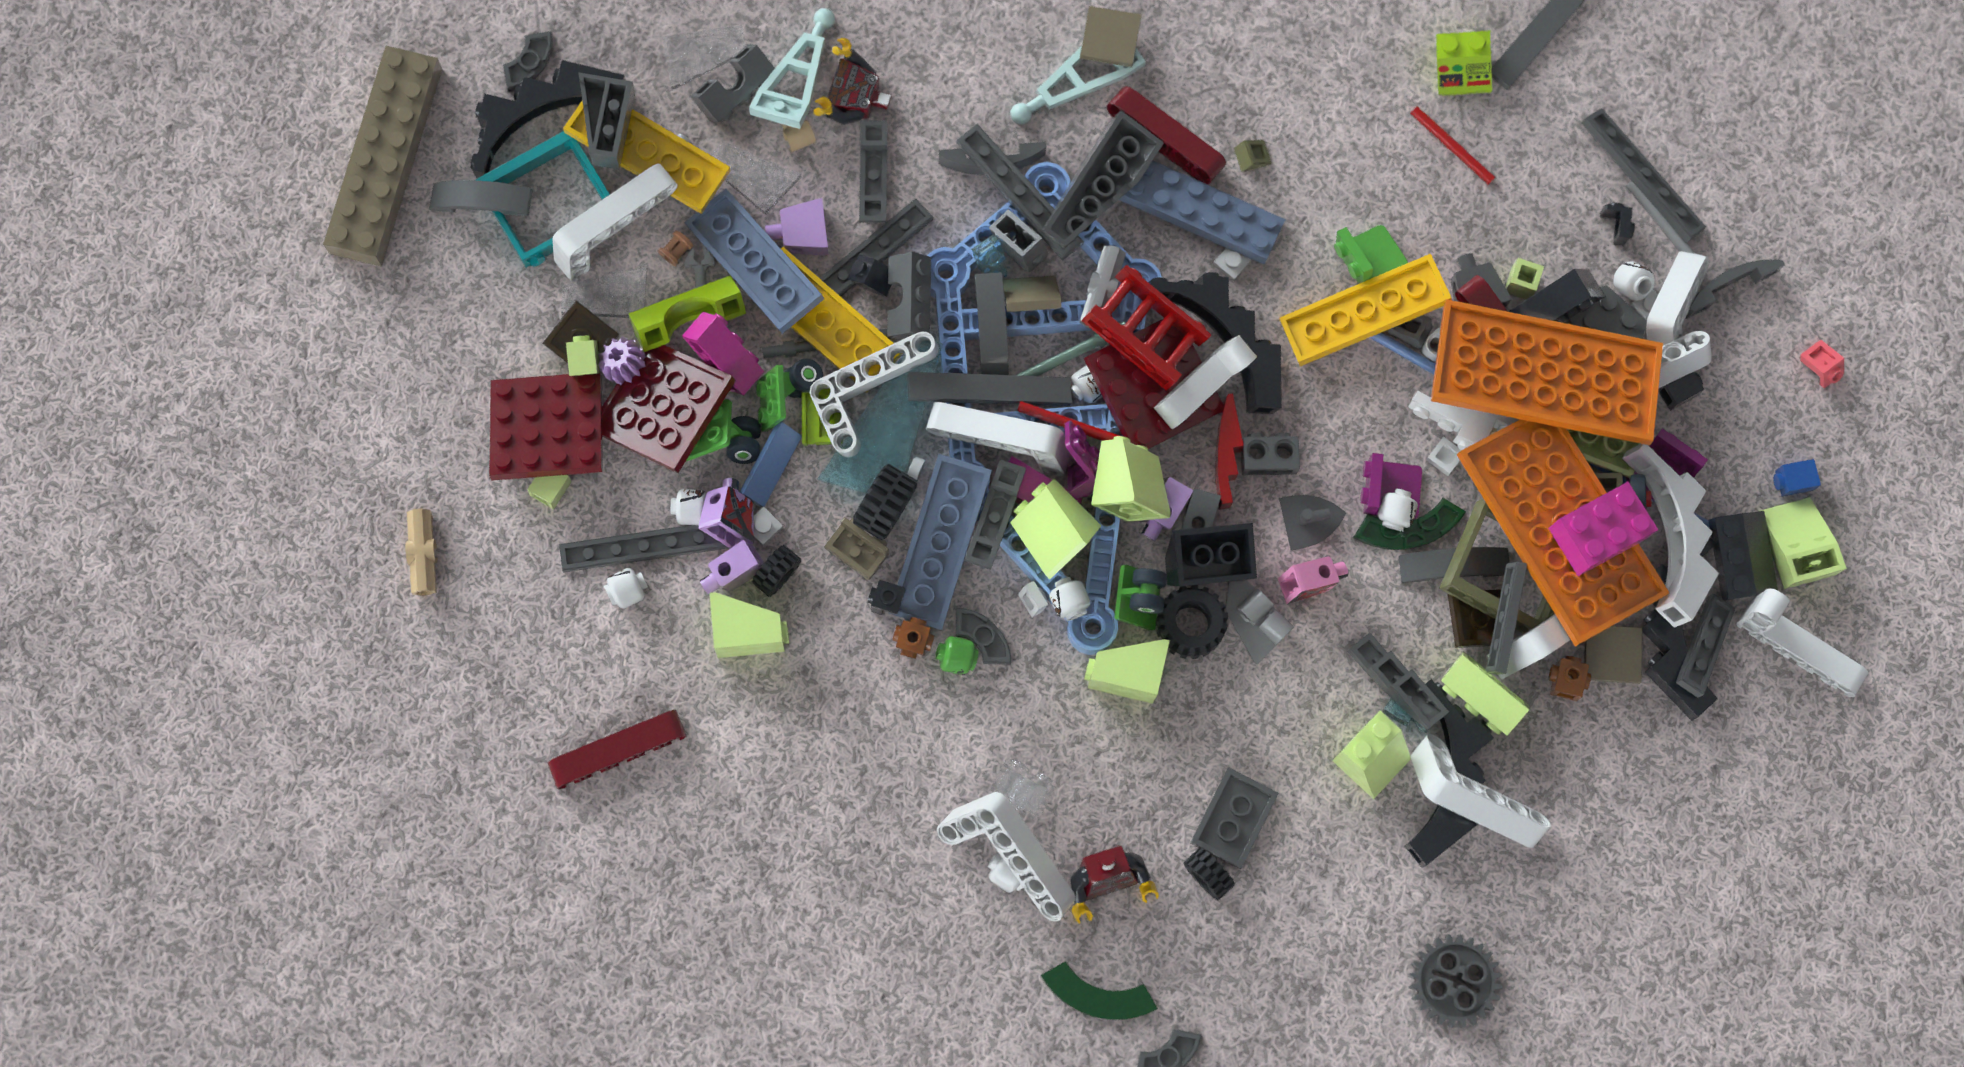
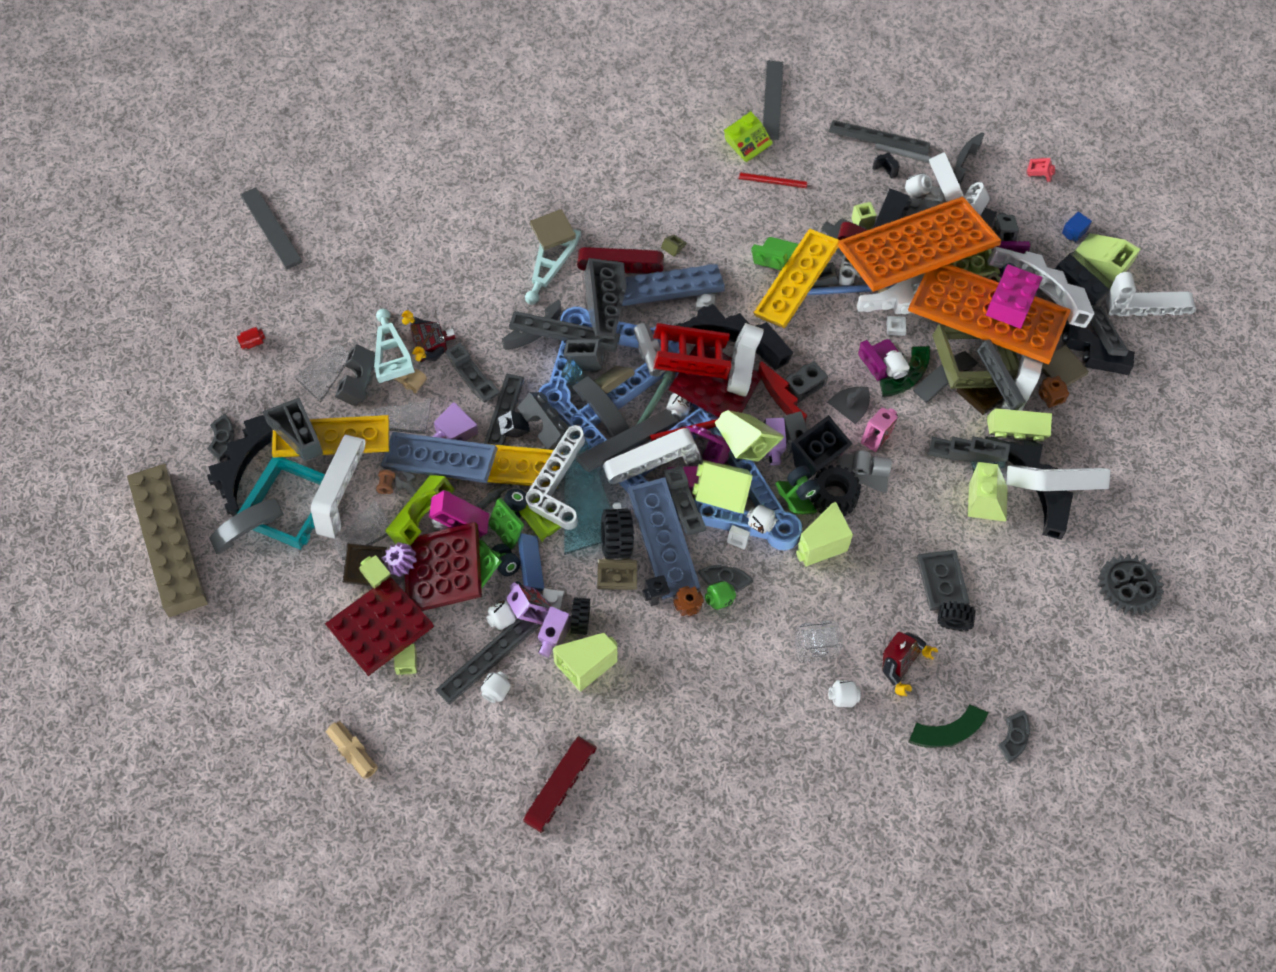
camera: 30 degrees left, 15 degrees down
(1016, 845) = (839, 674): white beam -> none
(1695, 419) = (1006, 226): none -> dark grey torso

